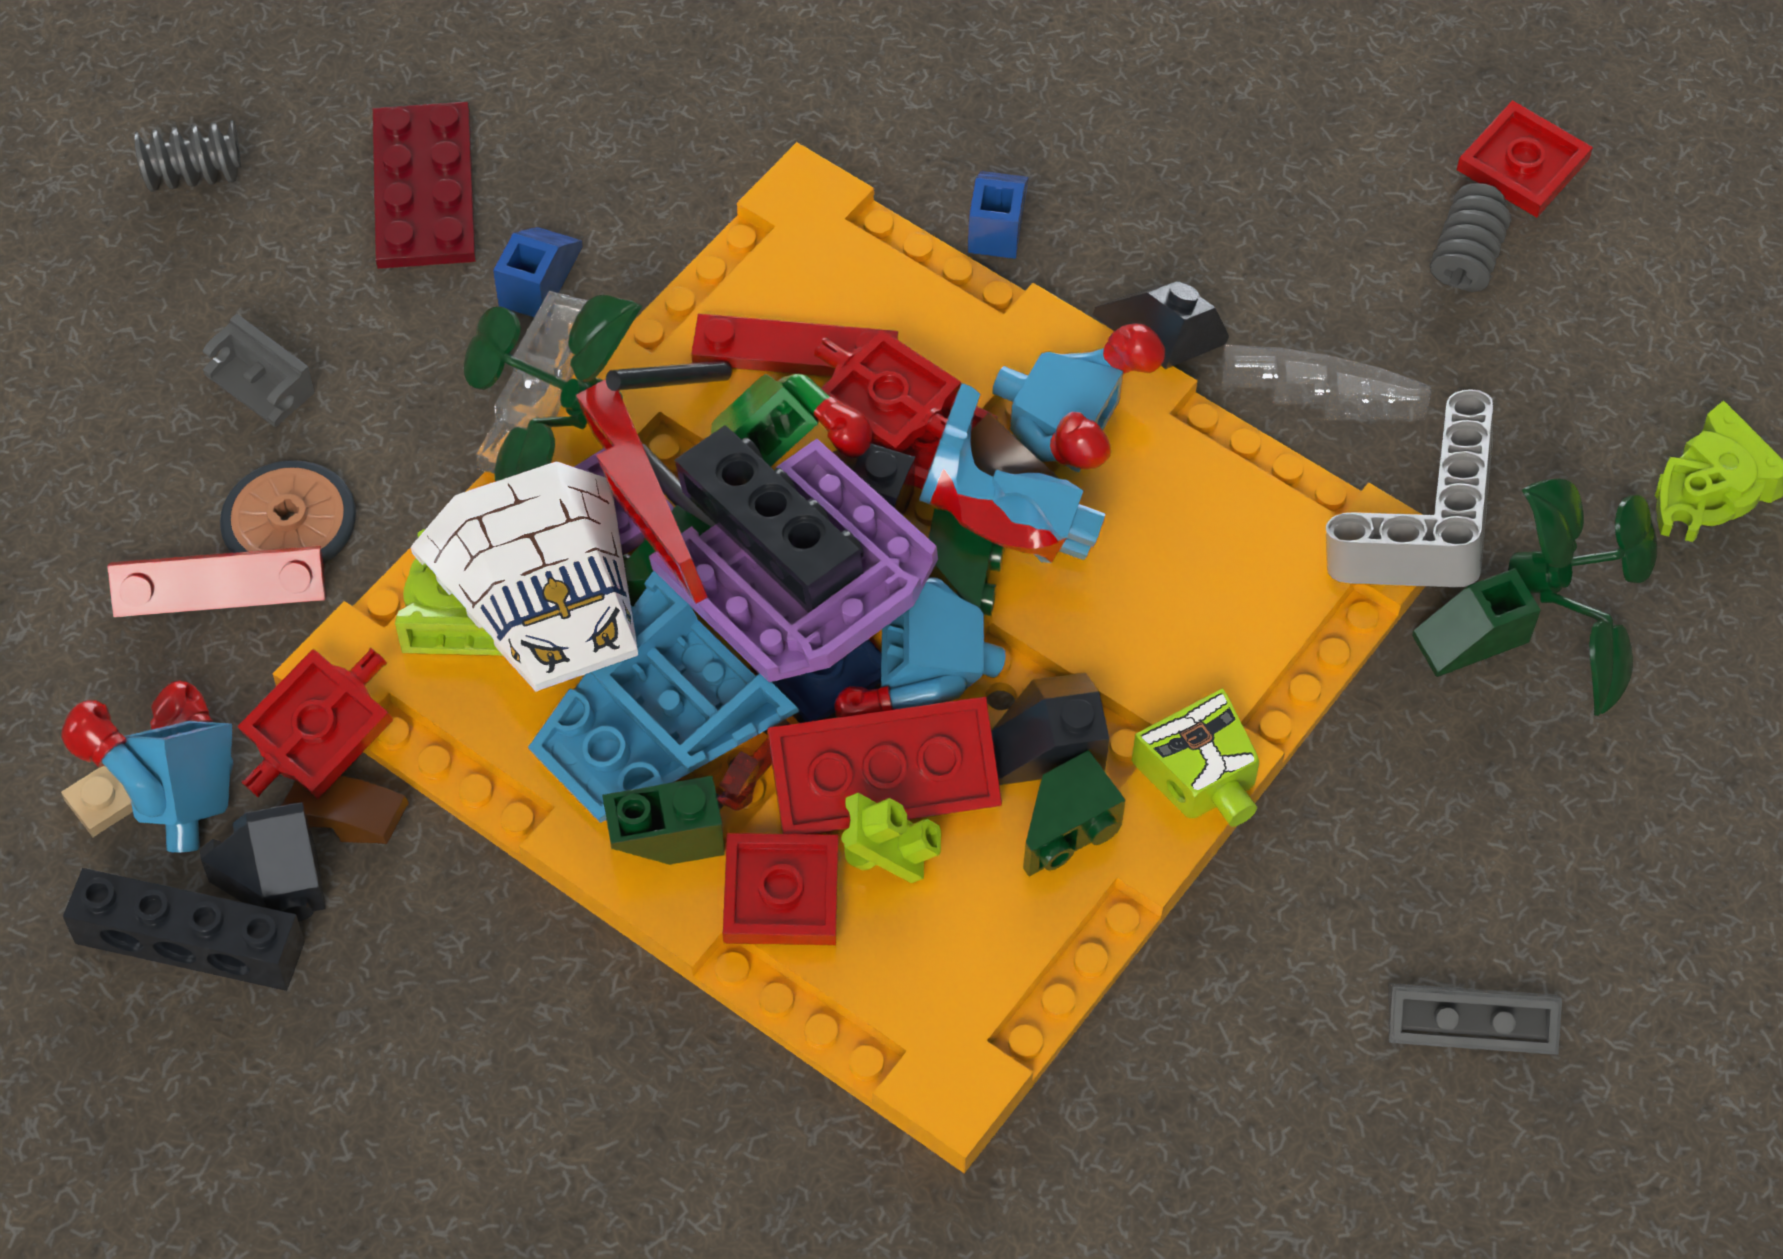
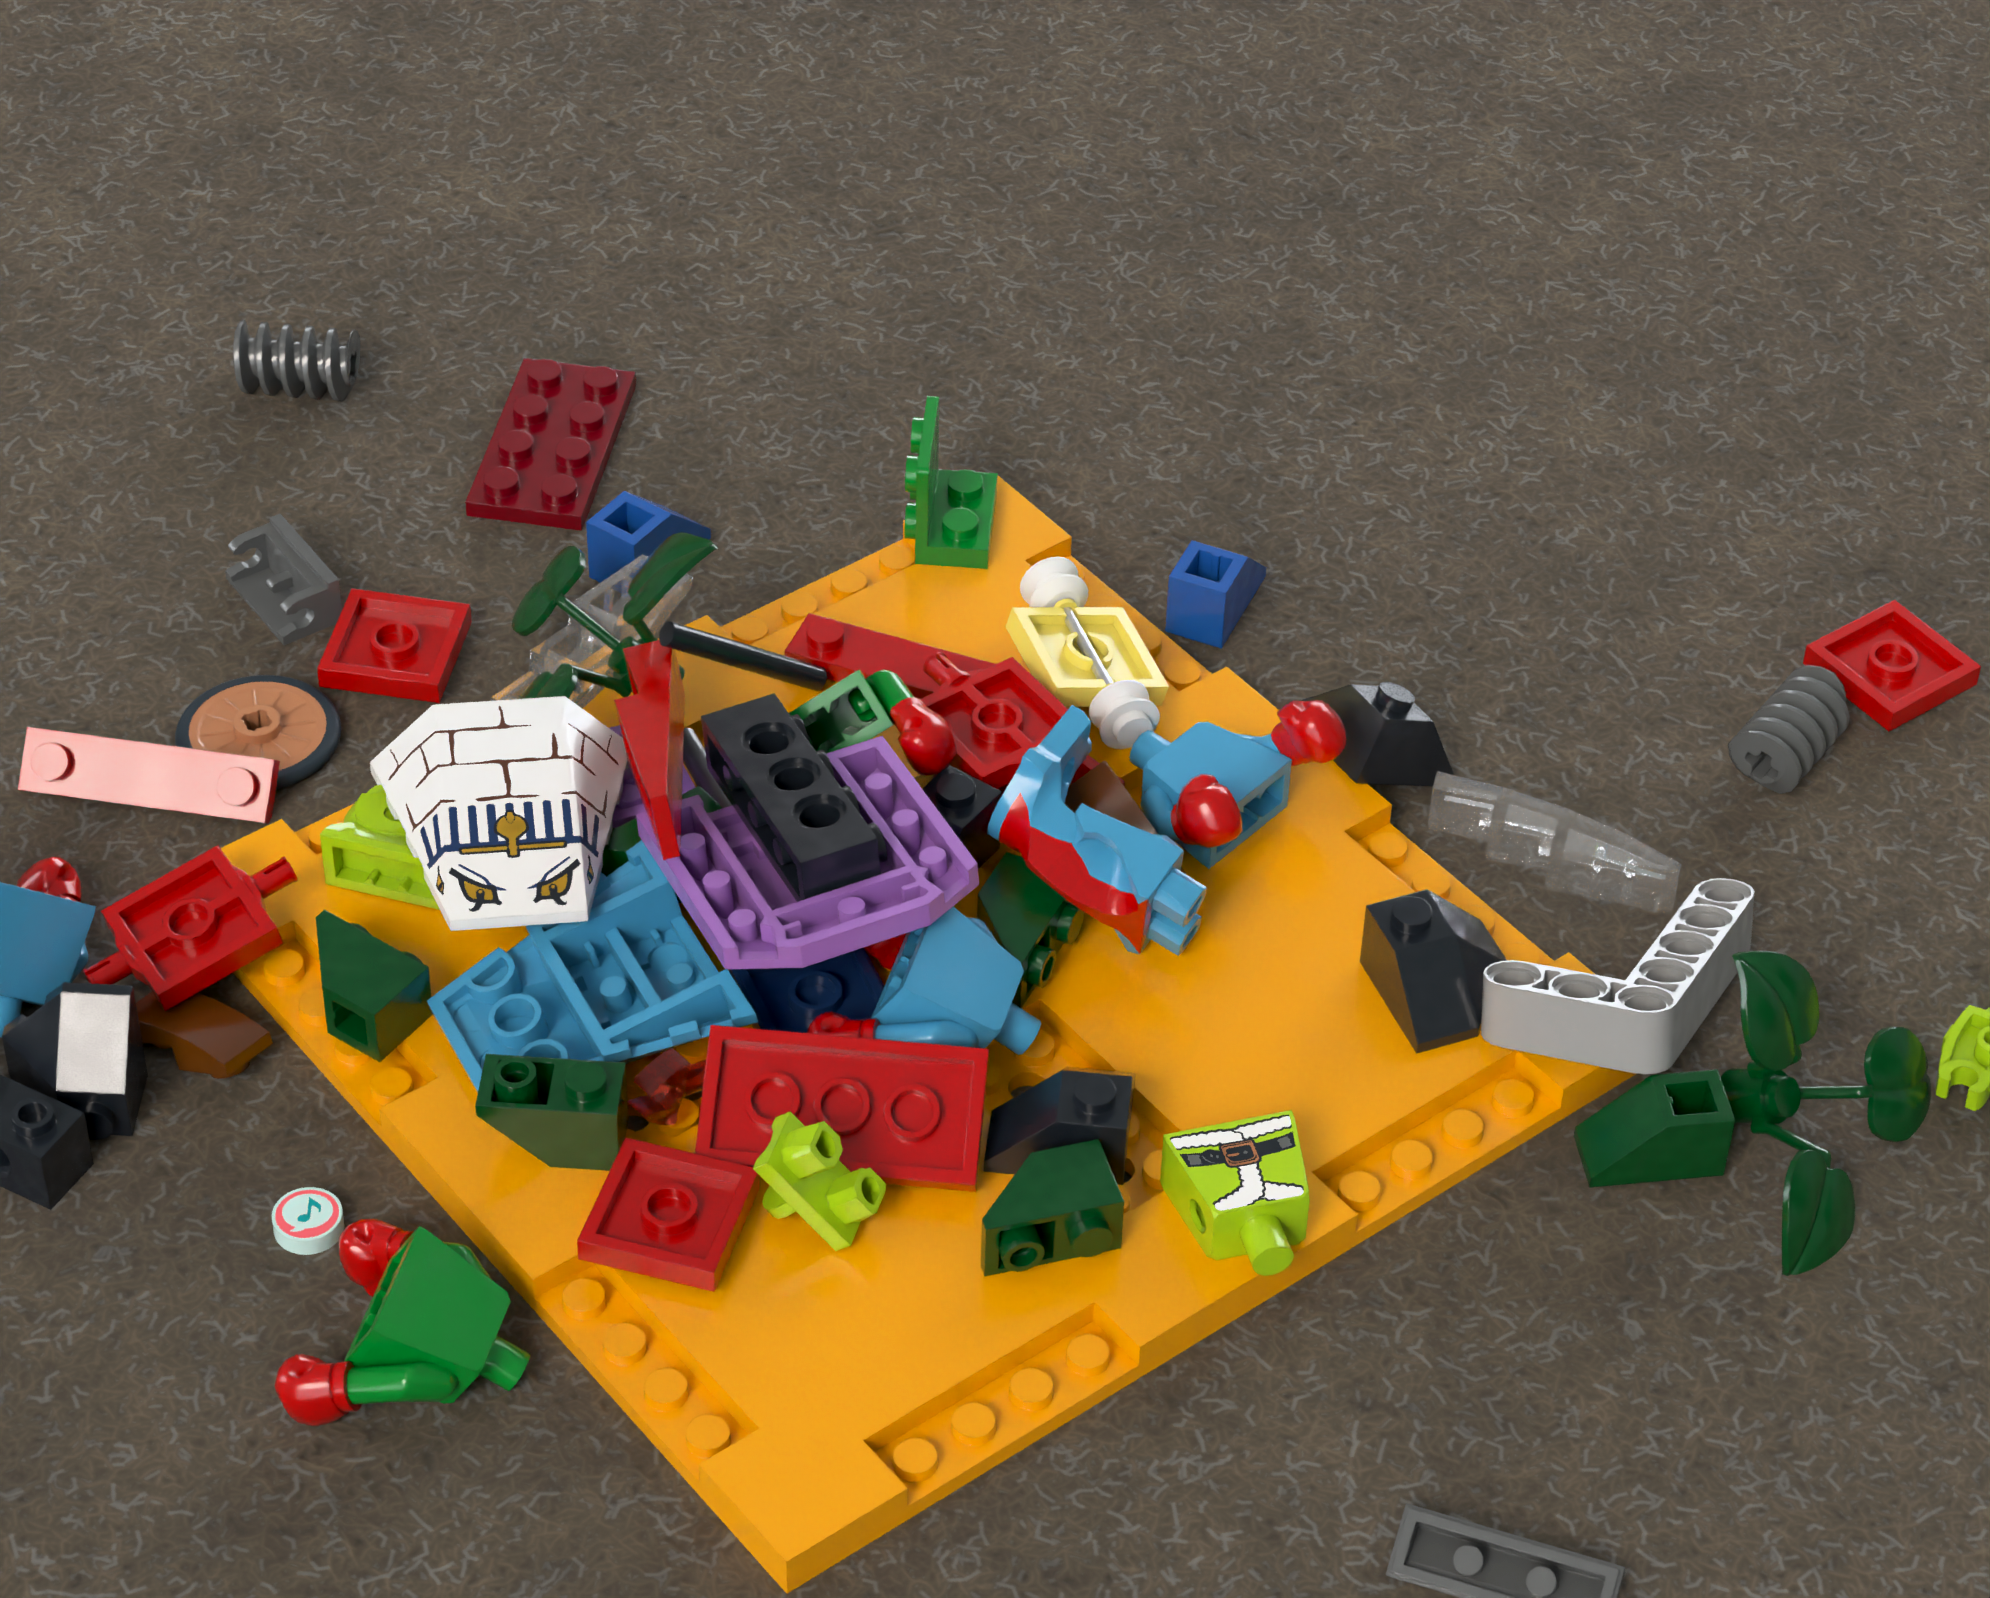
camera: 15 degrees right, 15 degrees down
(369, 410) = (394, 645): none -> red plate
(476, 747) = (369, 988): none -> dark green slope
(493, 951) = (307, 1220): none -> light aqua tile
(626, 1031) = (421, 1336): none -> green torso
(777, 184) = (951, 507): none -> green bracket
(930, 305) = (1086, 653): none -> plate
(1278, 528) = (1428, 966): none -> black slope

